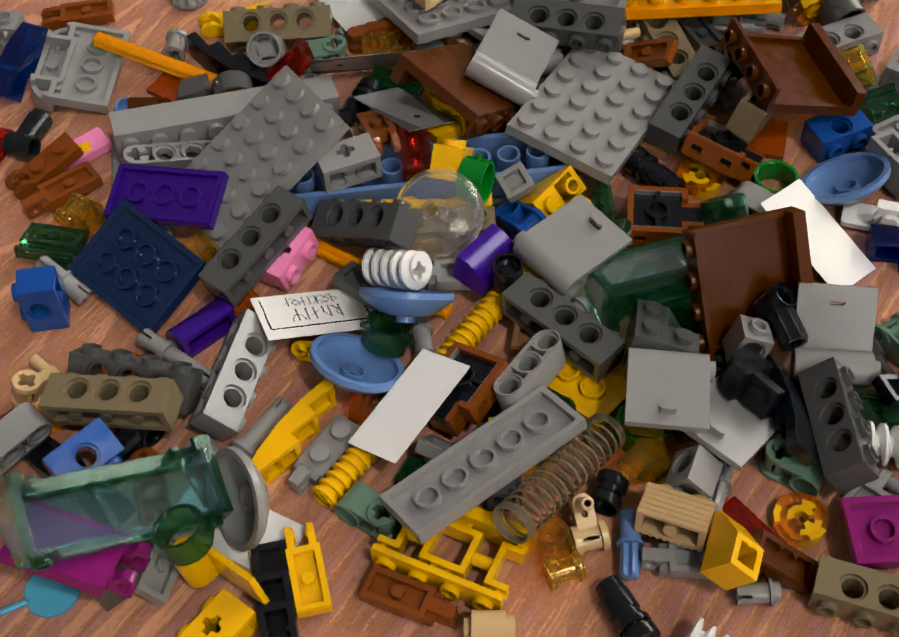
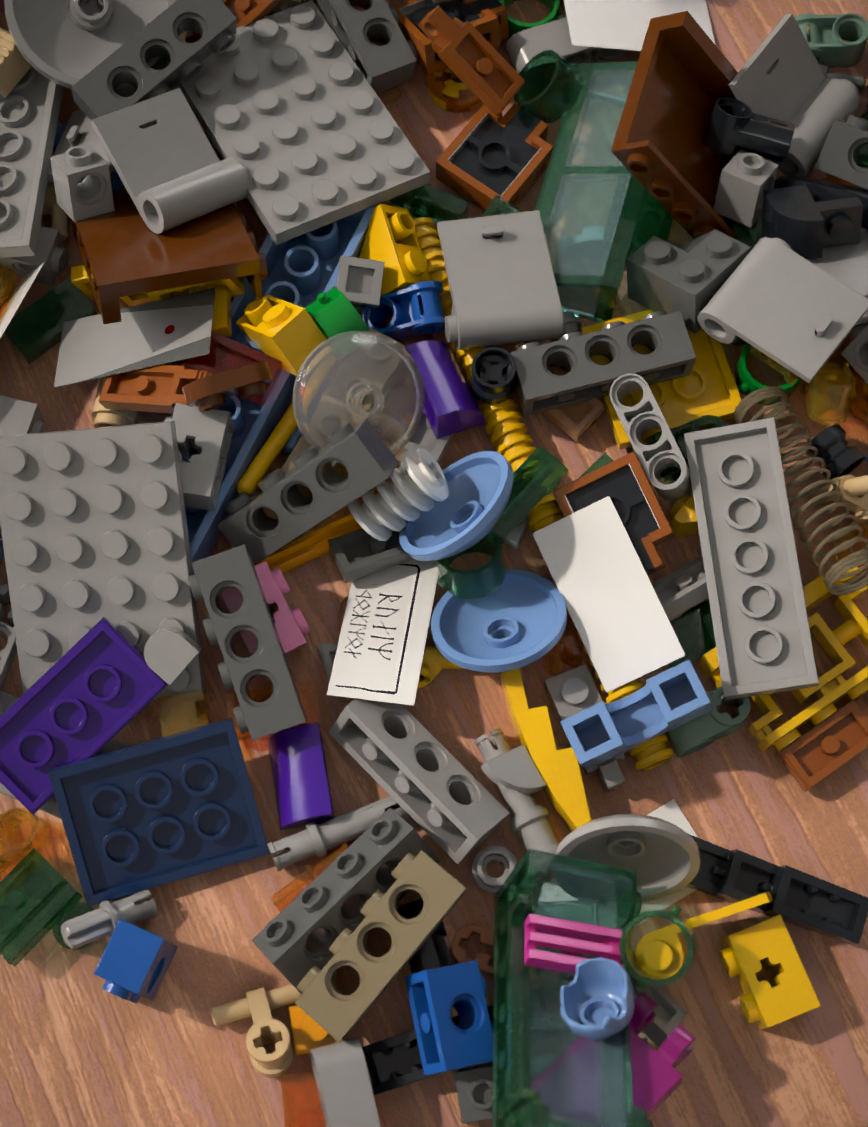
camera: 60 degrees left, 20 degrees up
(124, 514) = (598, 999): none -> medium blue hair
(145, 491) = (570, 938): none -> dark pink tile
(225, 214) = (170, 653): none -> light grey tile
(264, 418) = (515, 770): none -> light grey tile
(307, 574) = (744, 829): yellow hinge -> none
(351, 463) = (624, 724): none -> medium blue arch
(352, 105) = (61, 403): black axle -> none
(384, 137) = (210, 391): none -> reddish brown plate
(457, 329) = (531, 482): none -> clear green plate
(459, 38) = (90, 196): none -> light grey brick
(649, 170) = (432, 119): black axle -> none
(700, 159) = (472, 59): none -> dark orange hinge

